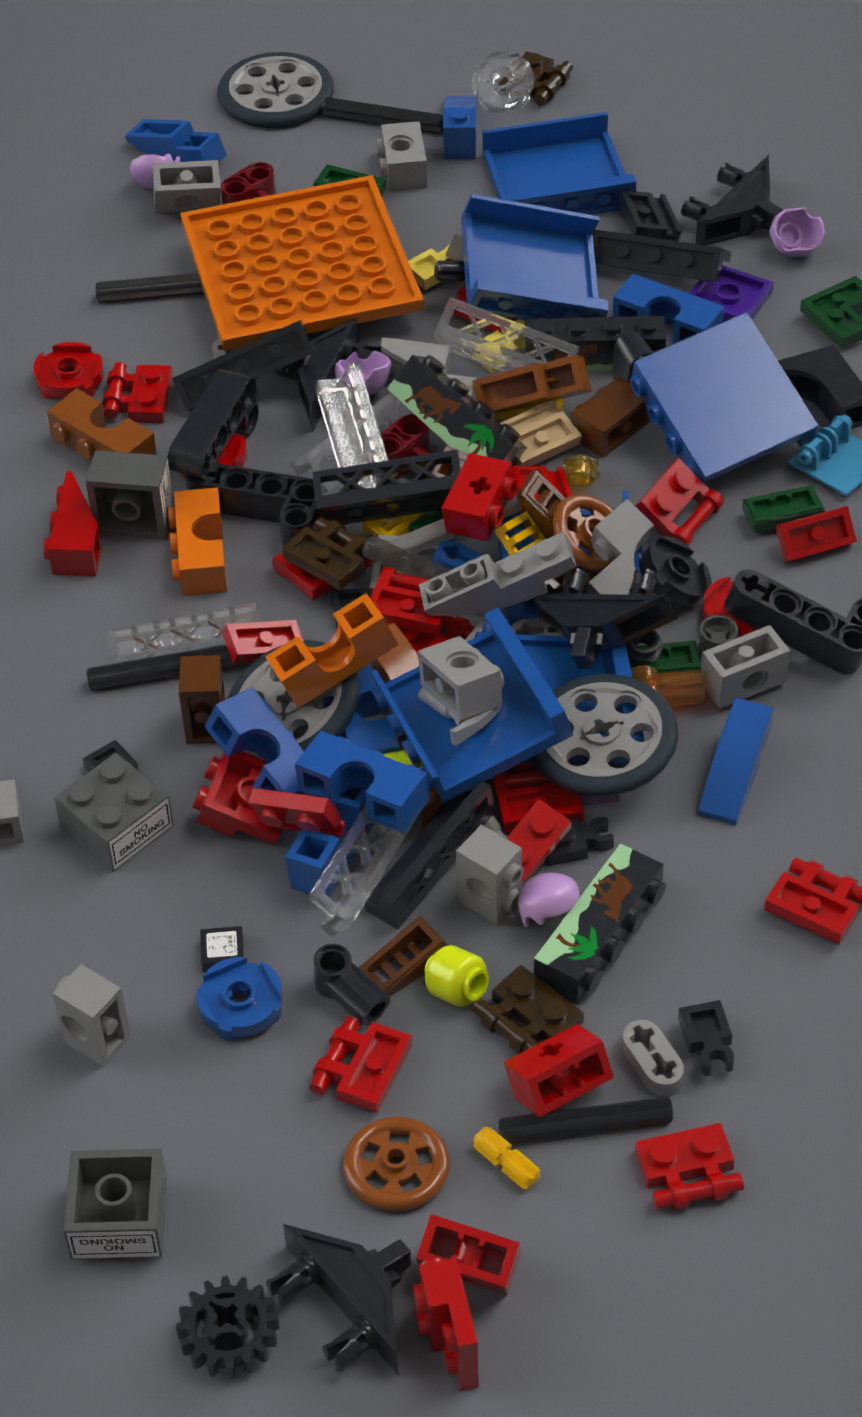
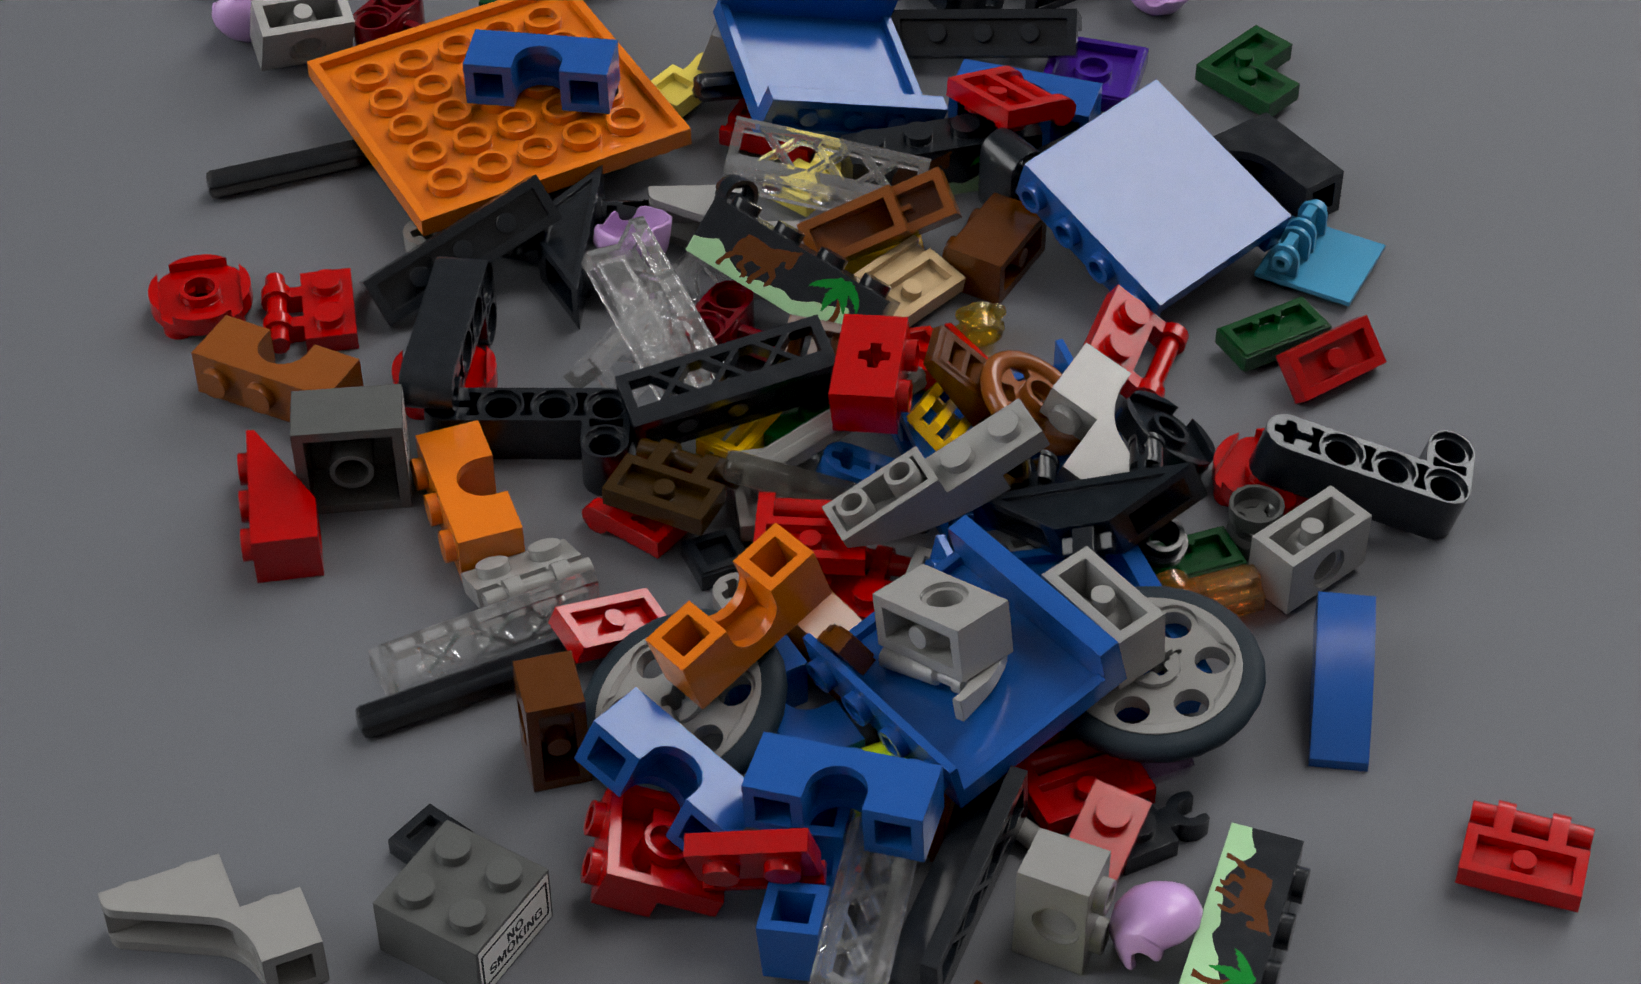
camera: 15 degrees left, 5 degrees down
(233, 592) = (506, 577): none -> light grey plate
(309, 234) = (508, 62): none -> blue arch
(398, 684) = (847, 648): none -> reddish brown tile
(444, 356) = (733, 181): none -> black hinge
(574, 689) = (1114, 607): none -> light grey brick
(647, 309) = (1009, 99): none -> red plate

